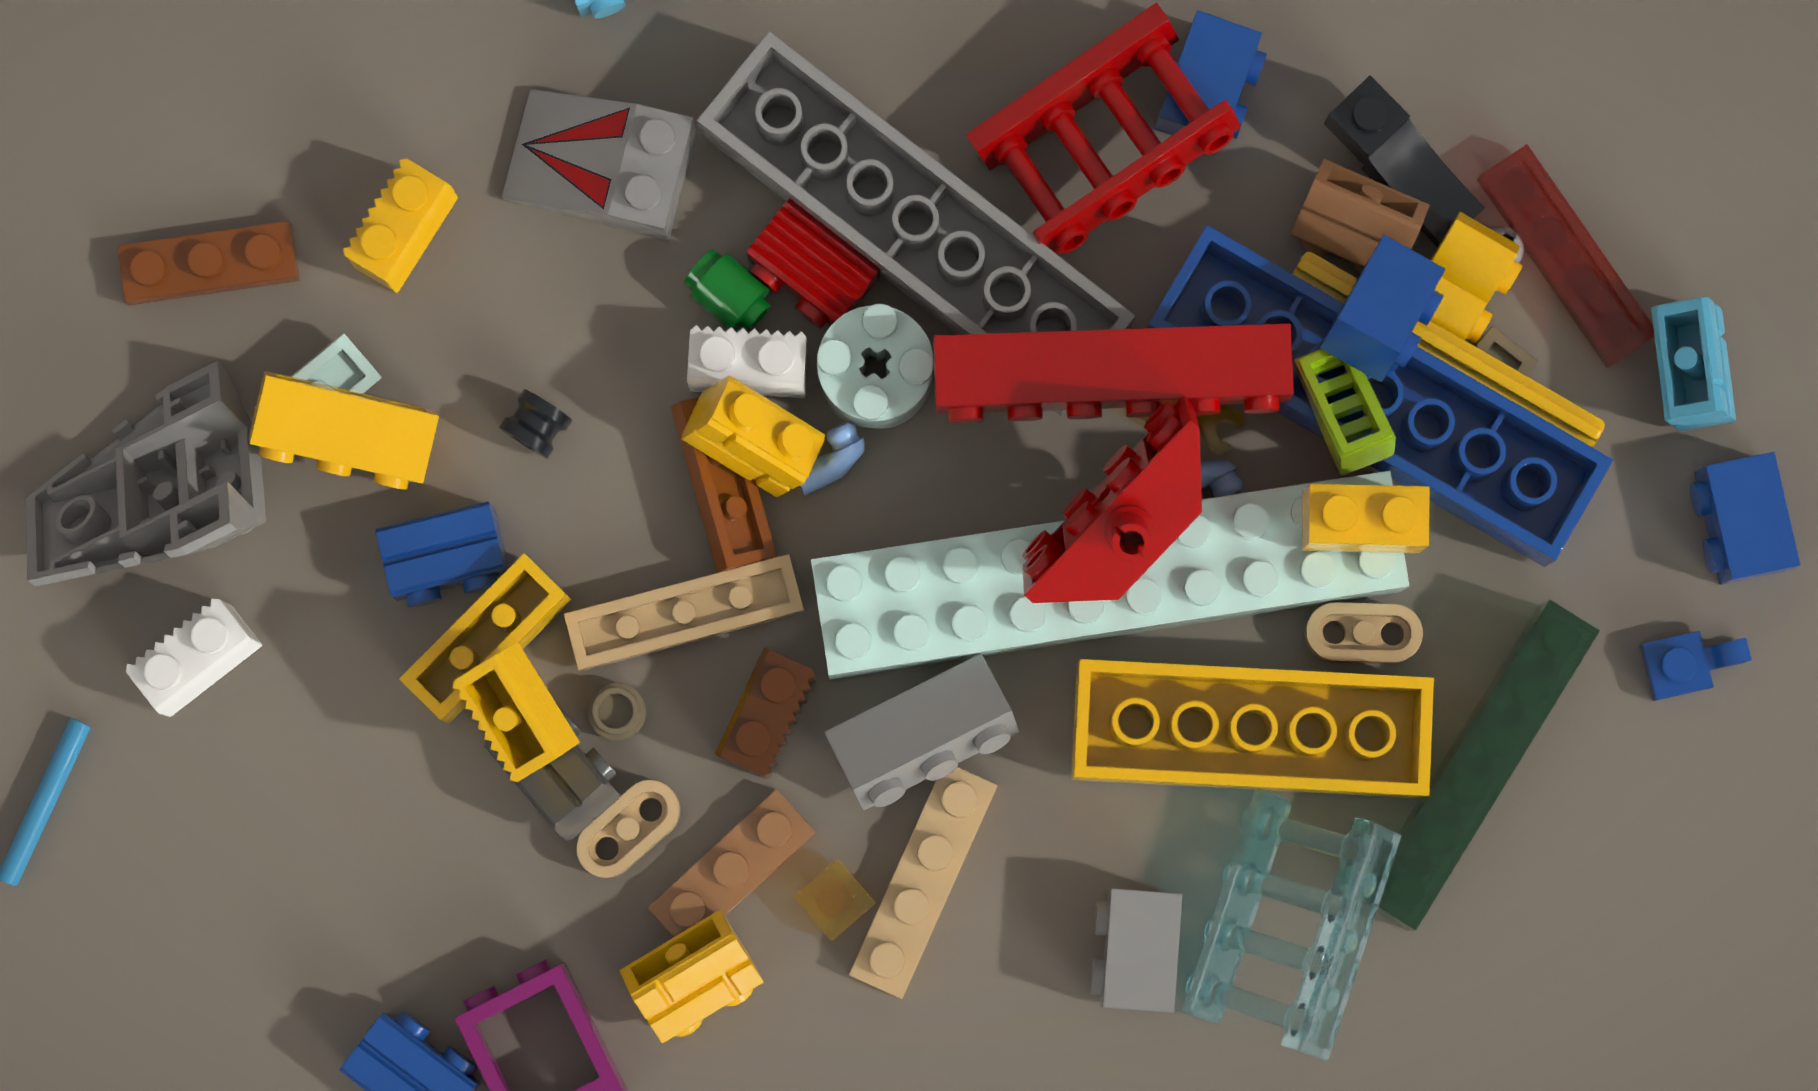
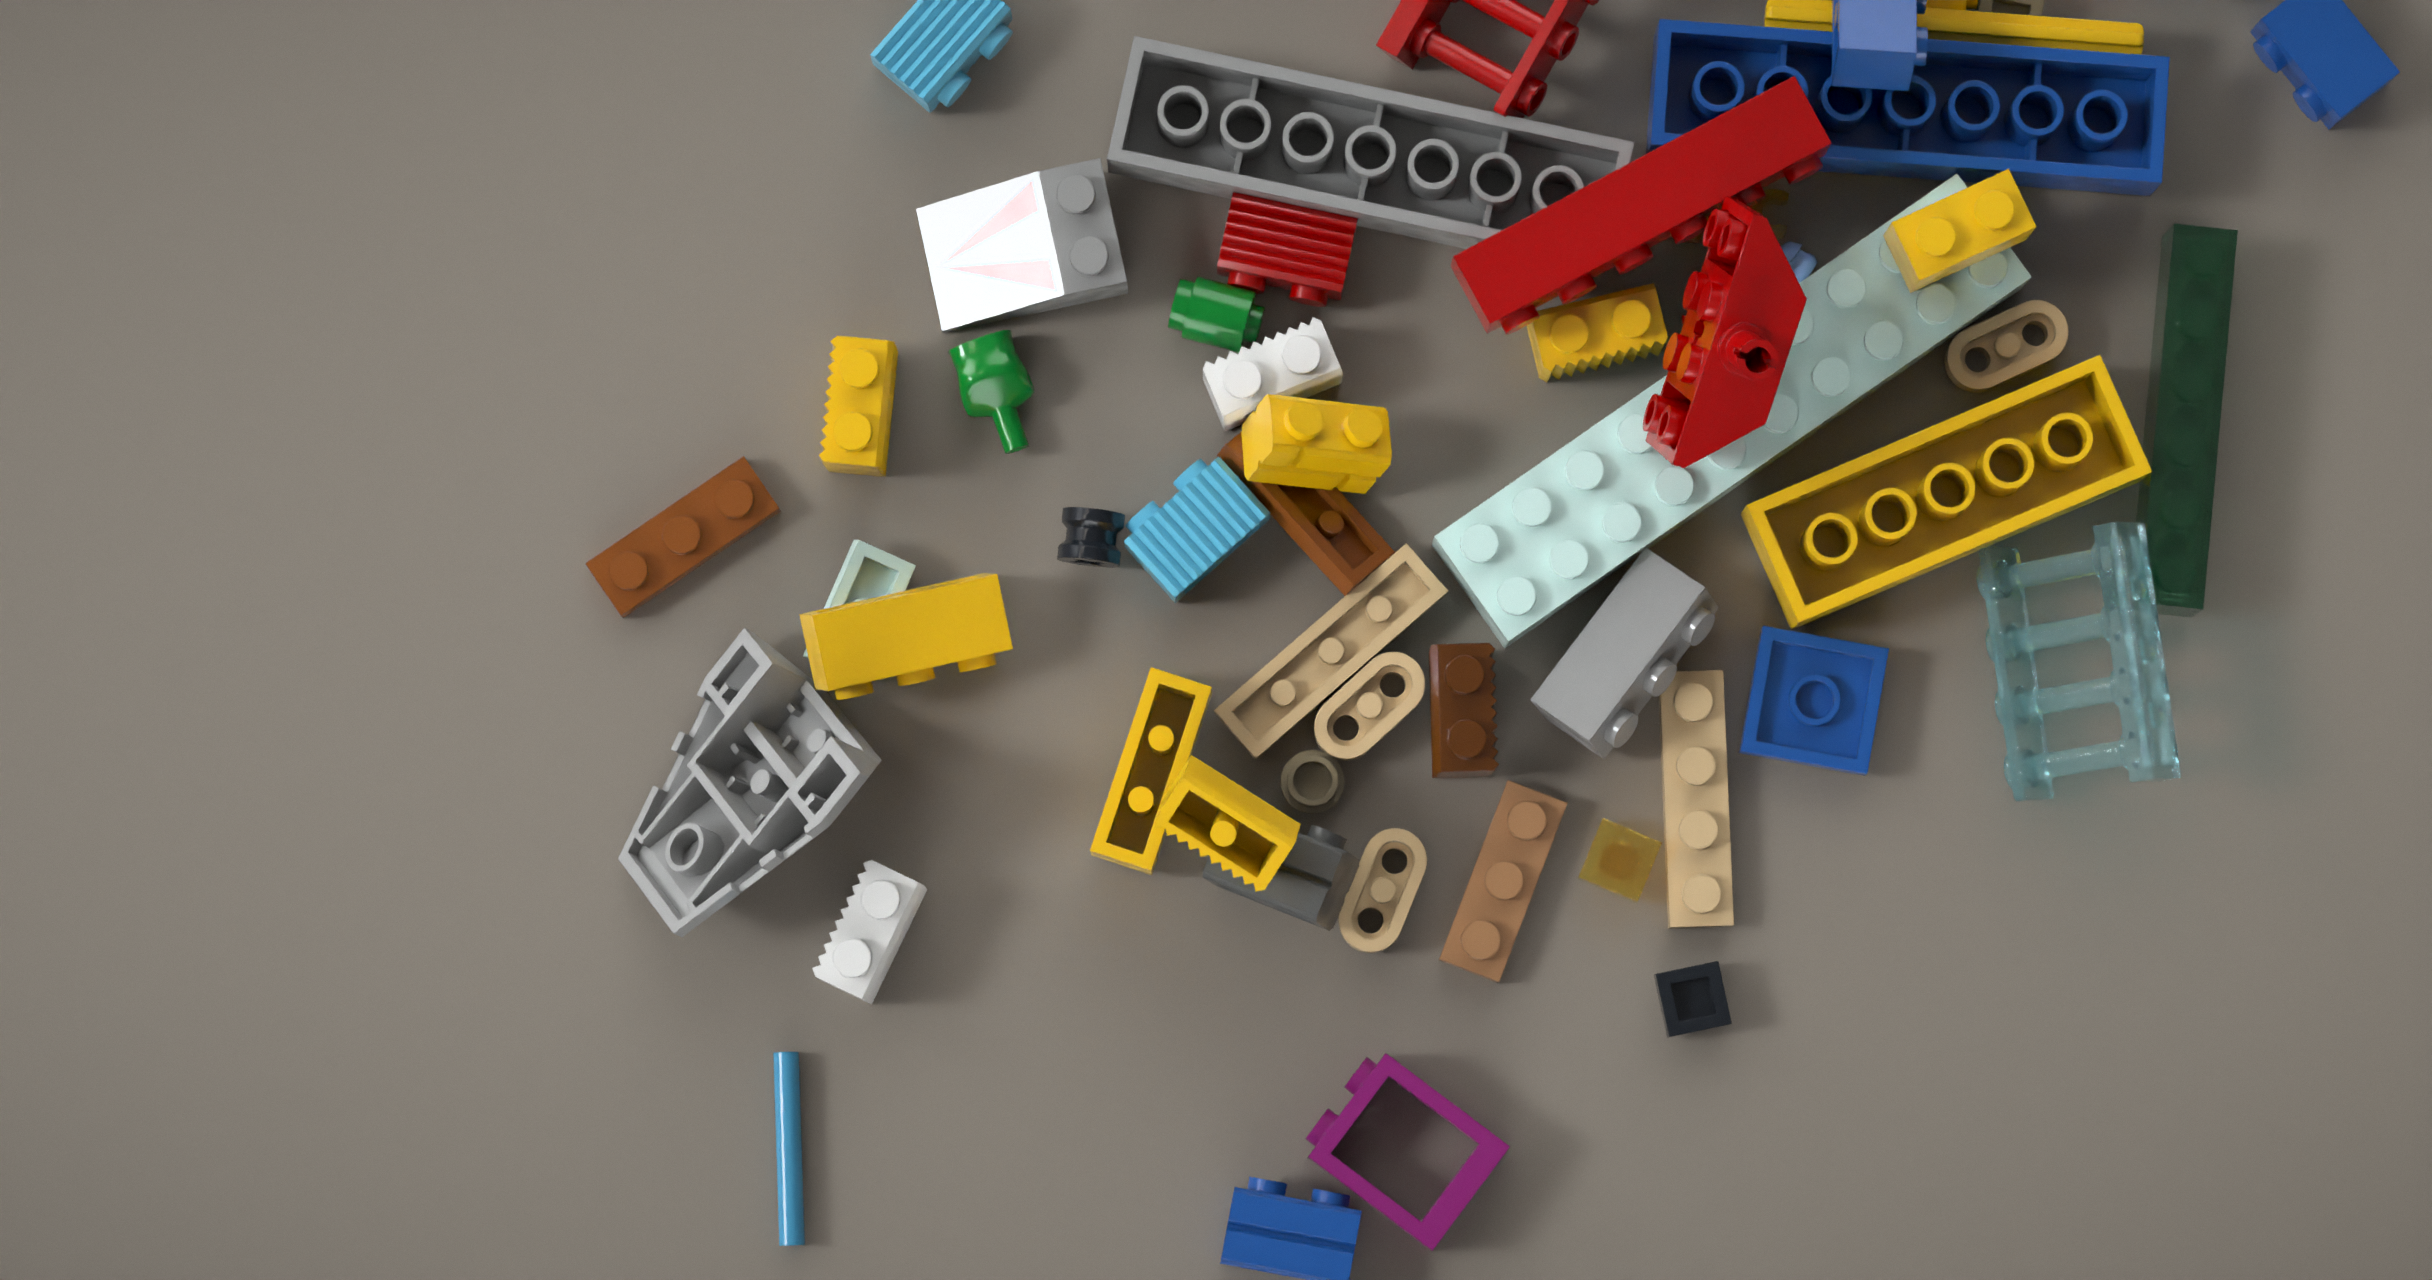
camera: 25 degrees left, 0 degrees up
(442, 553) = (1064, 709): blue brick -> none
(520, 261) = (994, 384): none -> green piece
(623, 456) = (1195, 527): none -> medium azure brick
(691, 977) = (1519, 1003): yellow brick -> none
(693, 671) = (1369, 706): none -> tan plate
(835, 464) = (1406, 431): light blue arm -> none
(837, 1043) = (1692, 999): none -> black plate
(879, 334) = (1384, 284): light aqua brick -> none
(1031, 457) = (1597, 332): none -> yellow brick
(1060, 847) = (1814, 700): none -> blue plate
(1138, 950) = (1941, 762): light grey brick -> none
(1360, 452) = (1908, 179): lime slope -> none
(1684, 665) = (2333, 224): blue plate -> none

